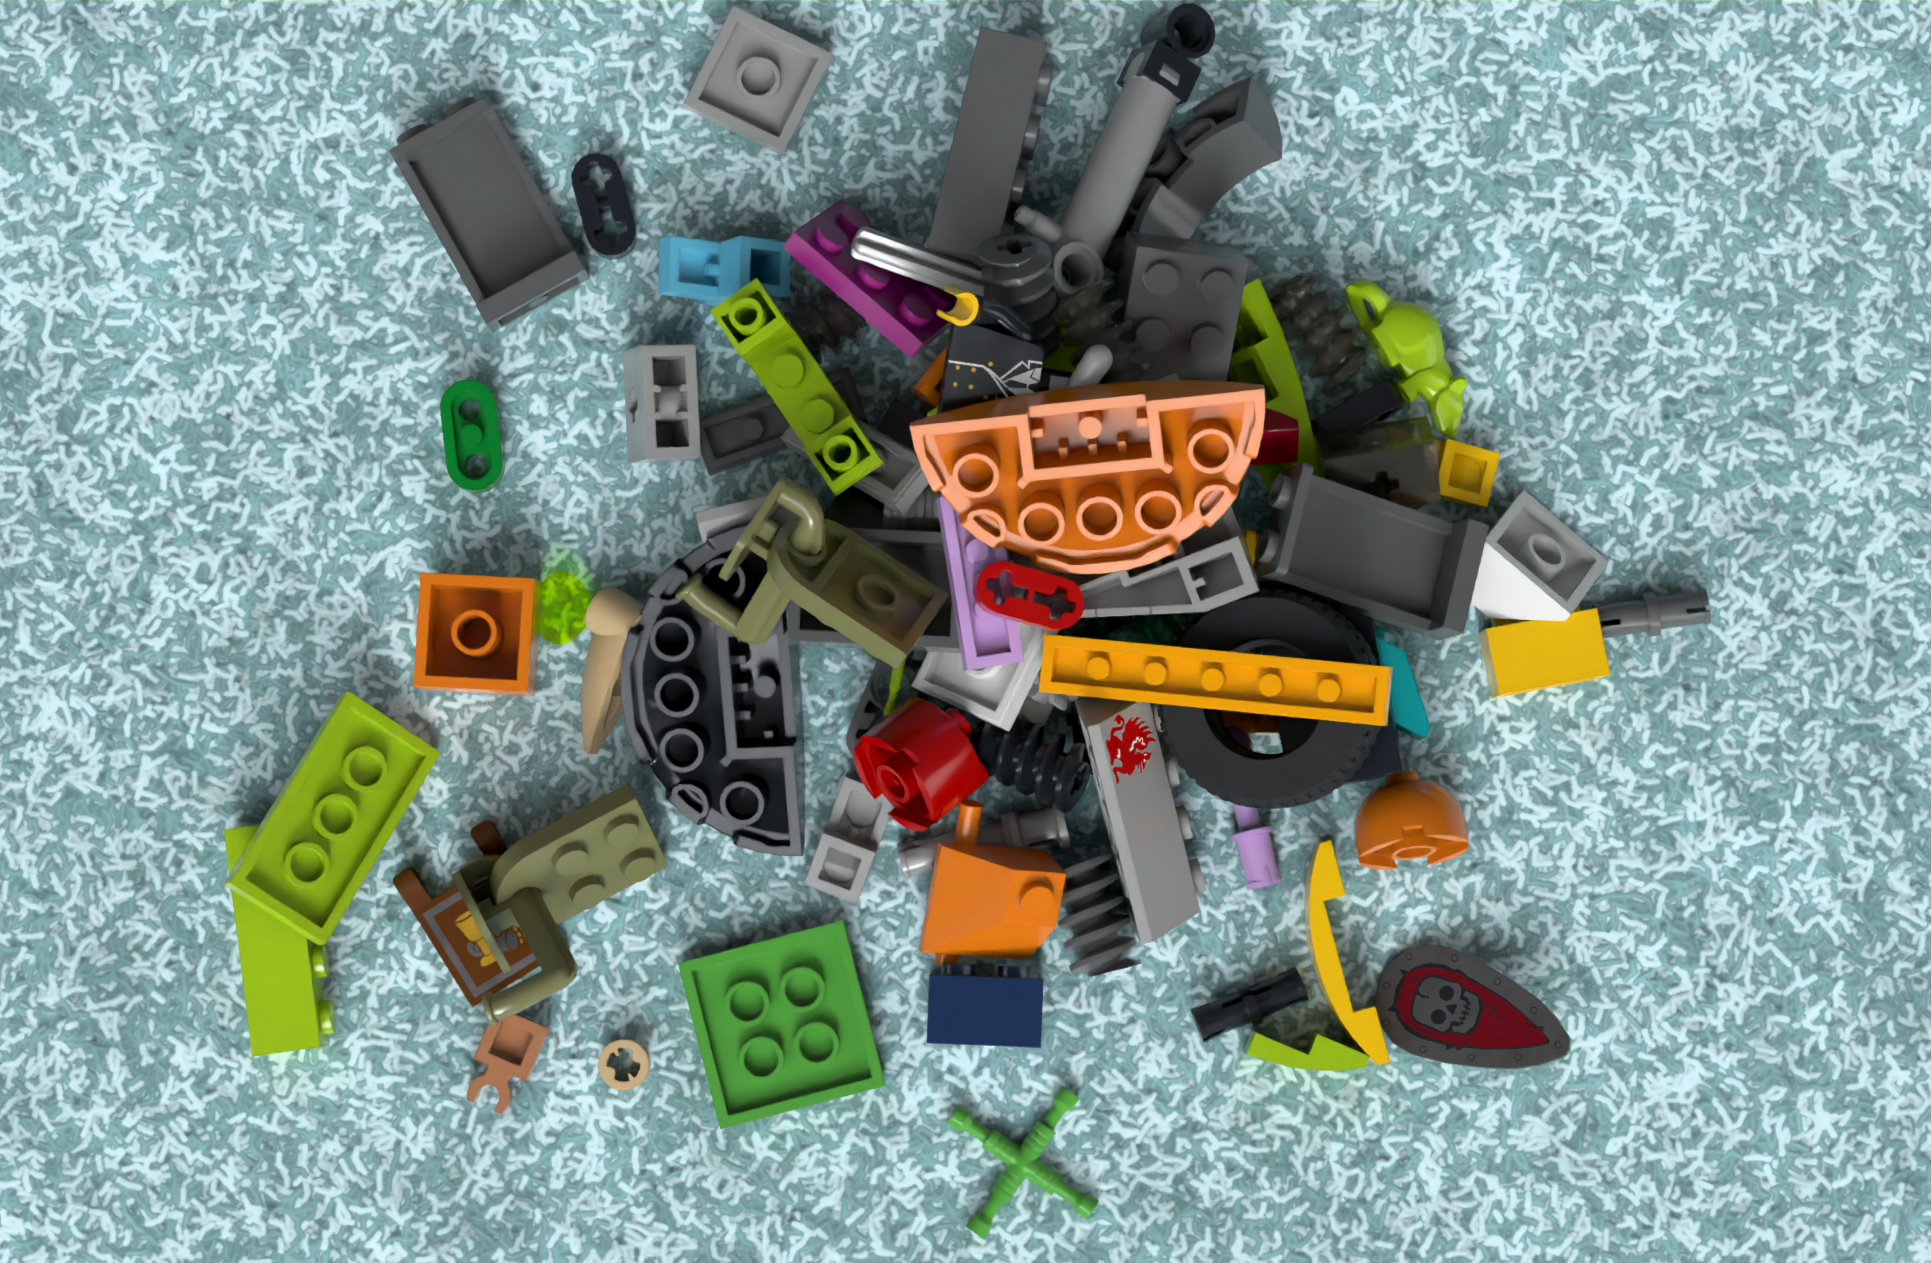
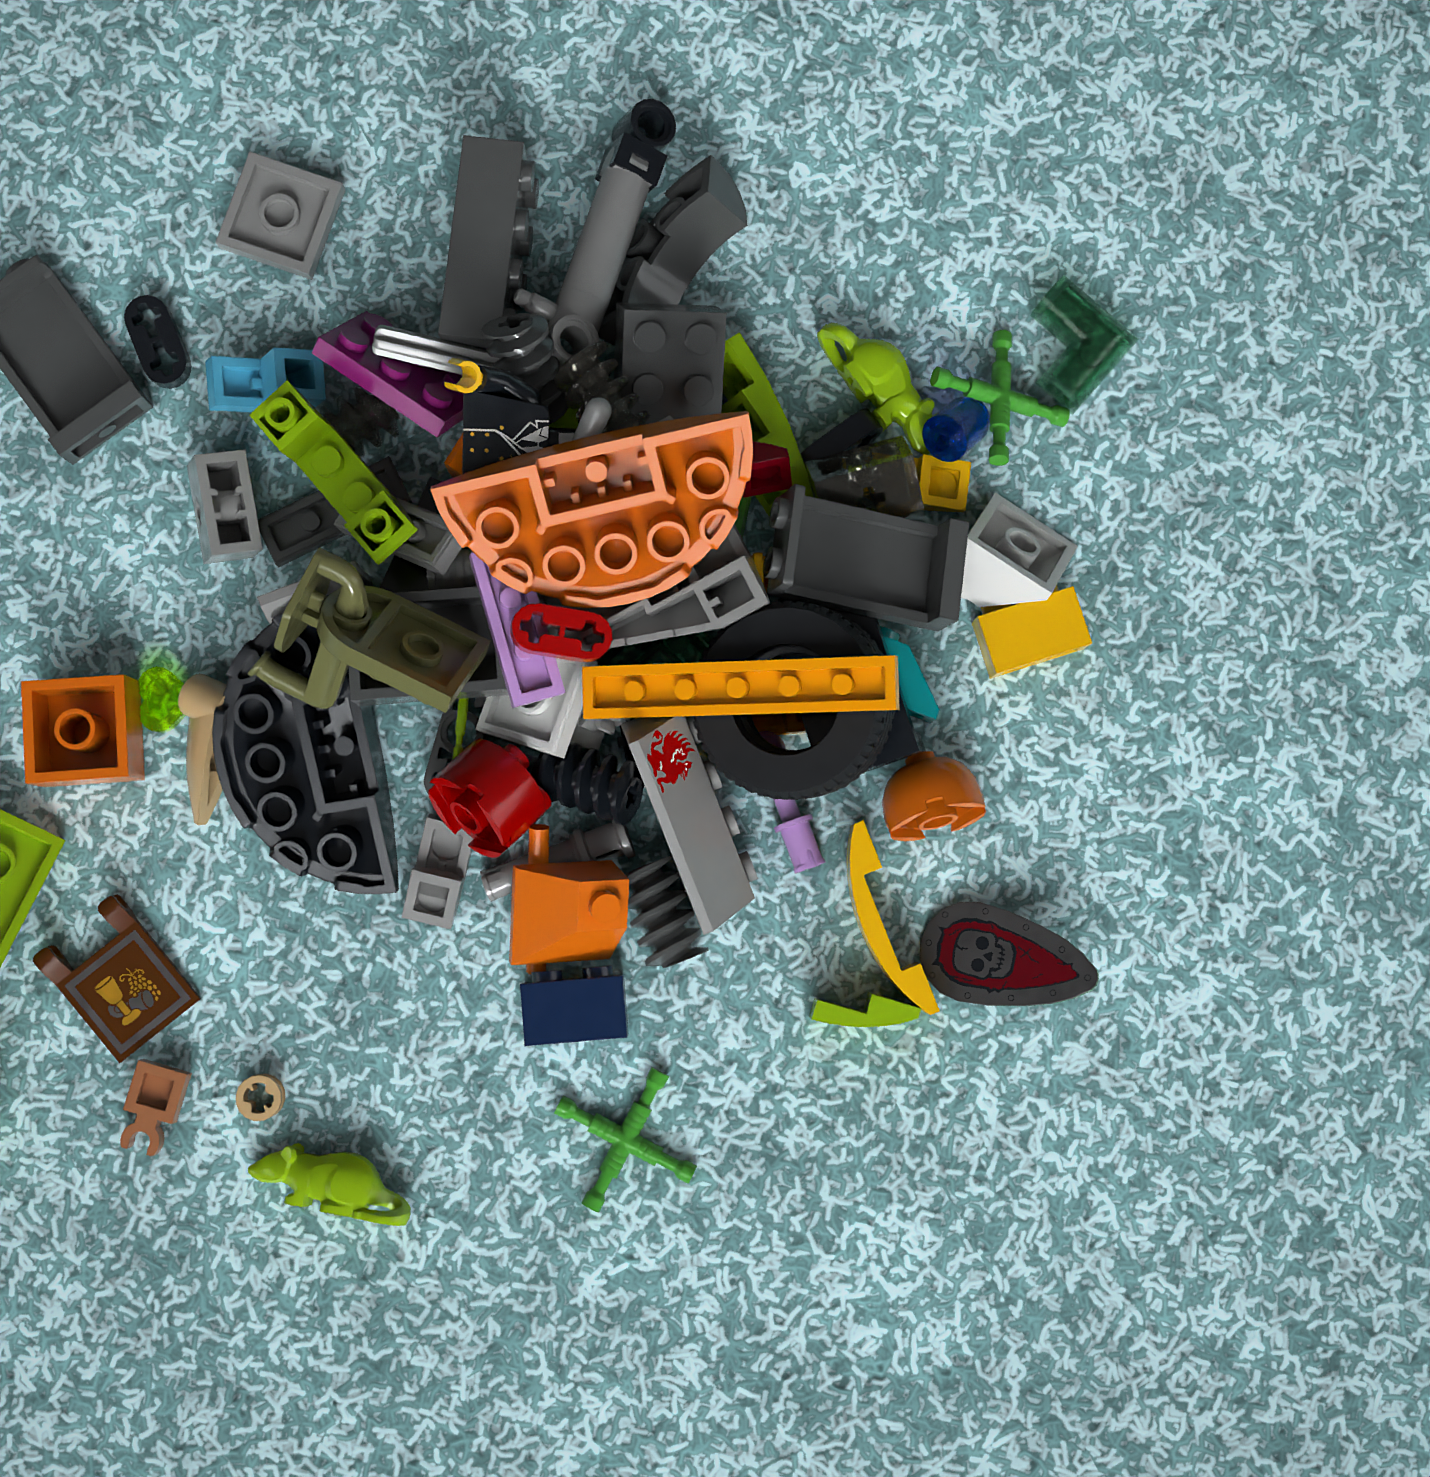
camera: 10 degrees left, 0 degrees up
(472, 437) = (62, 559): green plate -> none
(553, 879) = (169, 943): olive plate -> none
(702, 1165) = (339, 1180): none -> lime animal
(781, 1024) = (396, 1044): bright green plate -> none
(1249, 1004) = (809, 974): black pin -> none
(1320, 330) = (799, 373): clear smoke piece -> none
(1488, 414) = (956, 428): none -> clear blue brick
(1541, 385) = (1000, 397): none -> bright green piece
(1654, 332) = (1092, 342): none -> clear green brick
(1654, 613) = (1124, 586): dark grey pin -> none

